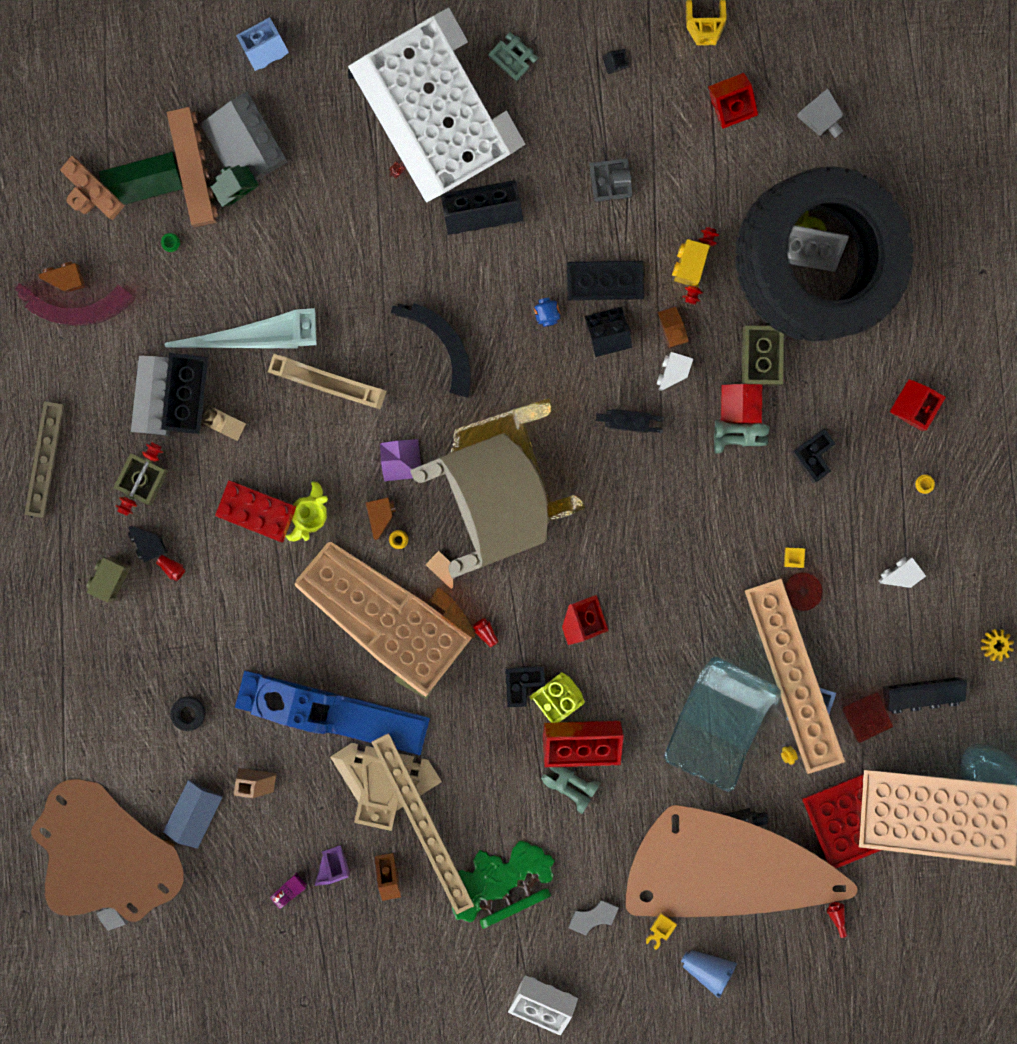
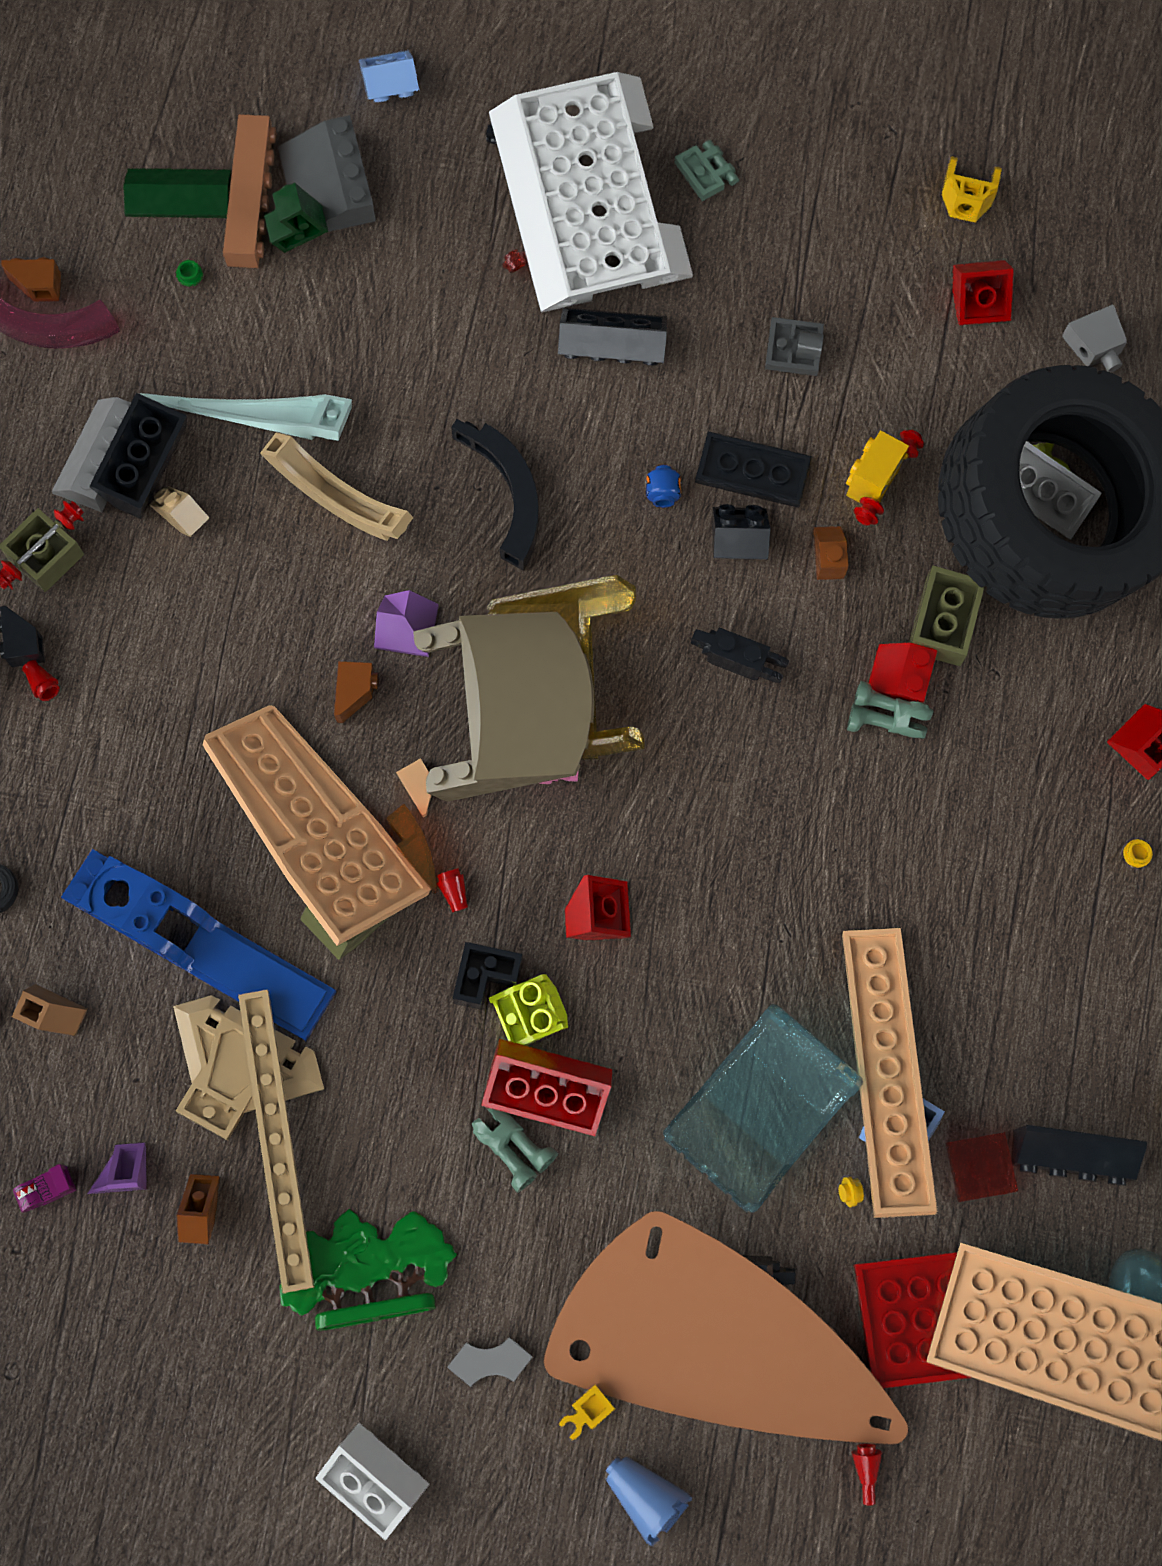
camera: 15 degrees right, 15 degrees down
(89, 190) = (106, 183): nougat plate -> none
(255, 511) = (183, 634): red piece -> none
(309, 514) = (253, 657): neon yellow piece -> none
(394, 544) = (369, 720): yellow plate -> none
(616, 61) = (838, 210): black slope -> none
(676, 370) = (820, 606): white slope -> none
(794, 557) = (926, 904): yellow plate -> none
(809, 455) = (982, 767): black brick -> none
(809, 582) = (940, 946): clear red plate -> none
(905, 574) = (1082, 972): white slope -> none

